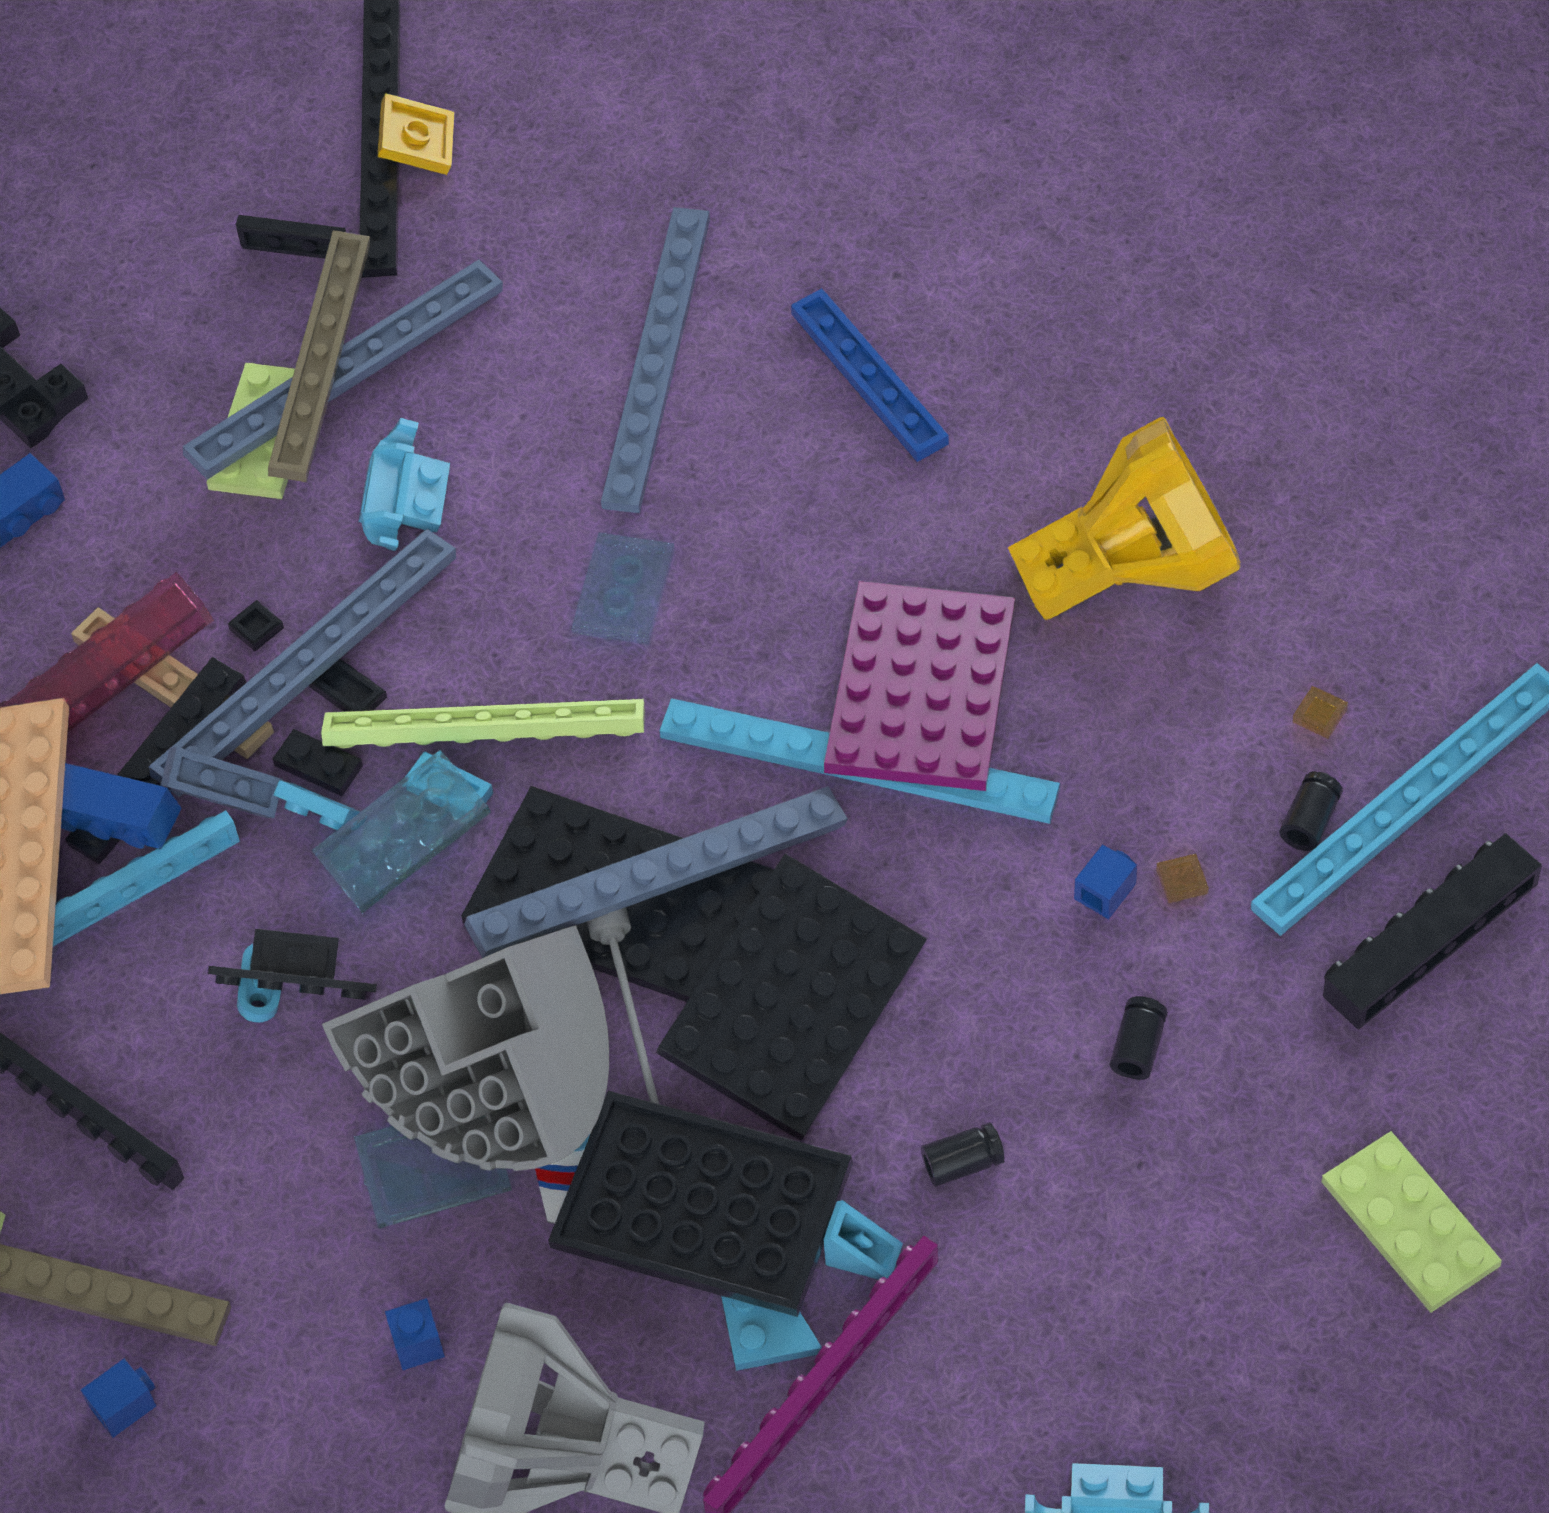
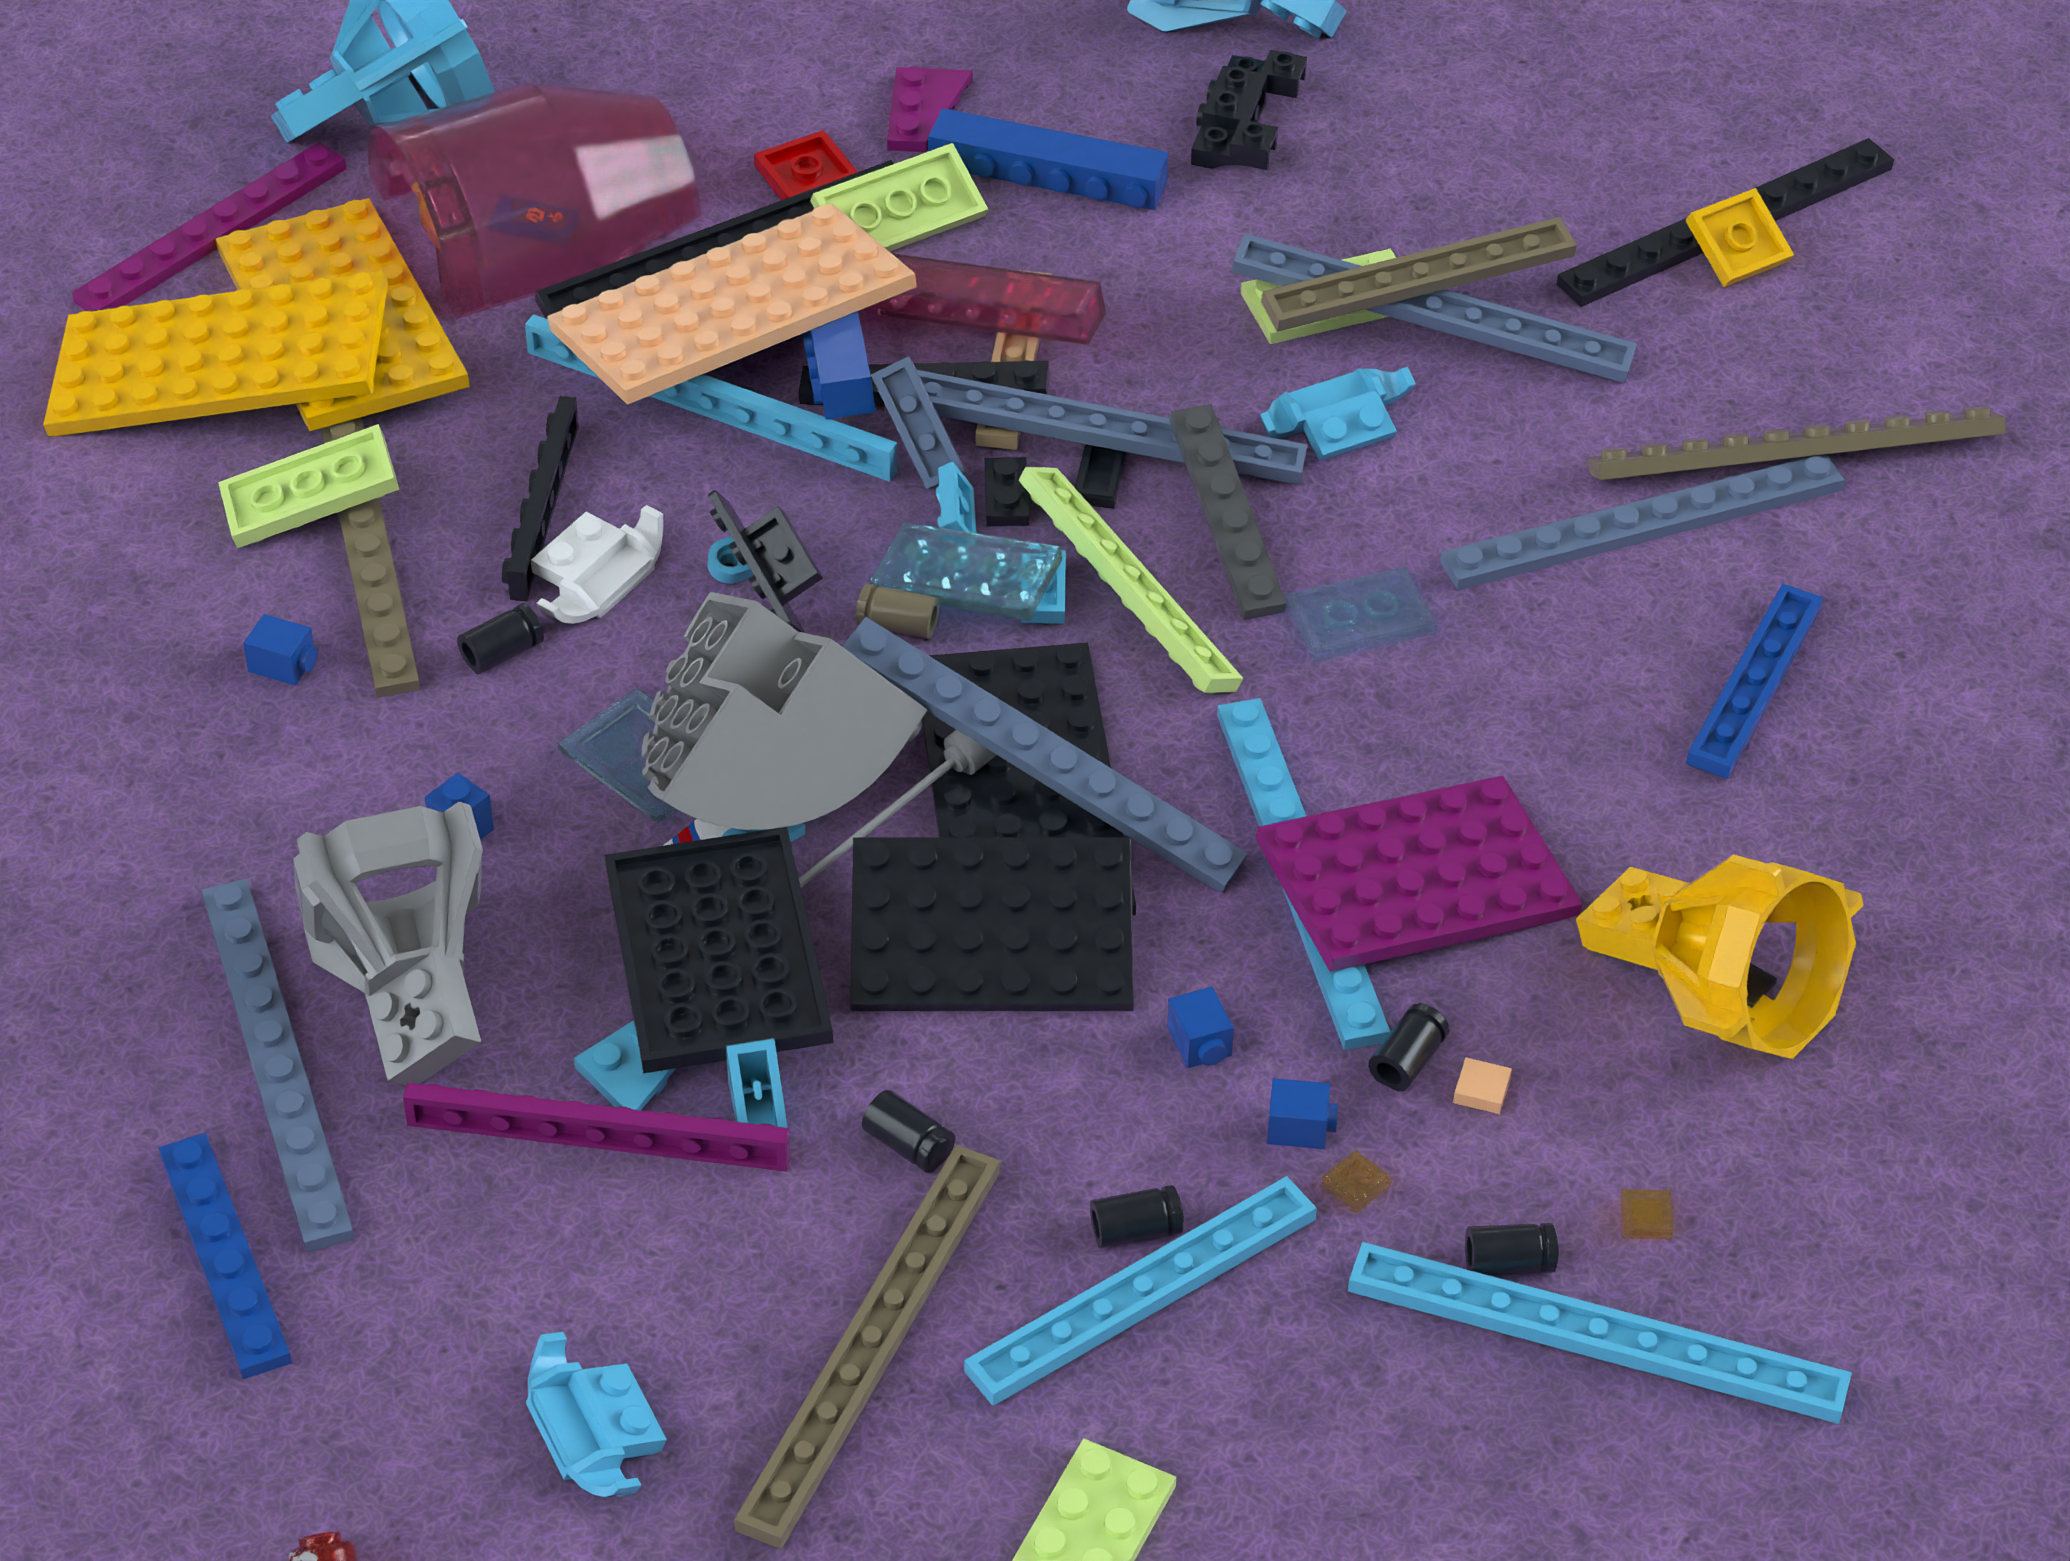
camera: 55 degrees right, 10 degrees down
(190, 1101) = (597, 564): none -> white plate
(227, 1215) = (500, 638): none -> black piece
(255, 625) = (1119, 386): black tile -> none
(284, 236) = (1546, 204): black tile -> none
(405, 902) = (898, 610): none -> dark tan piece
(463, 618) = (1227, 512): none -> dark grey plate
(652, 223) = (1779, 444): none -> dark tan plate
(983, 904) = (1200, 1027): none -> blue brick
(1084, 778) = (1408, 1047): none -> black piece
(1142, 751) = (1482, 1085): none -> light nougat tile
(1153, 1281) = (866, 1348): none -> dark tan plate
(1207, 1072) = (1139, 1291): none -> medium azure plate
(1430, 930) = (1443, 1413): black brick -> none

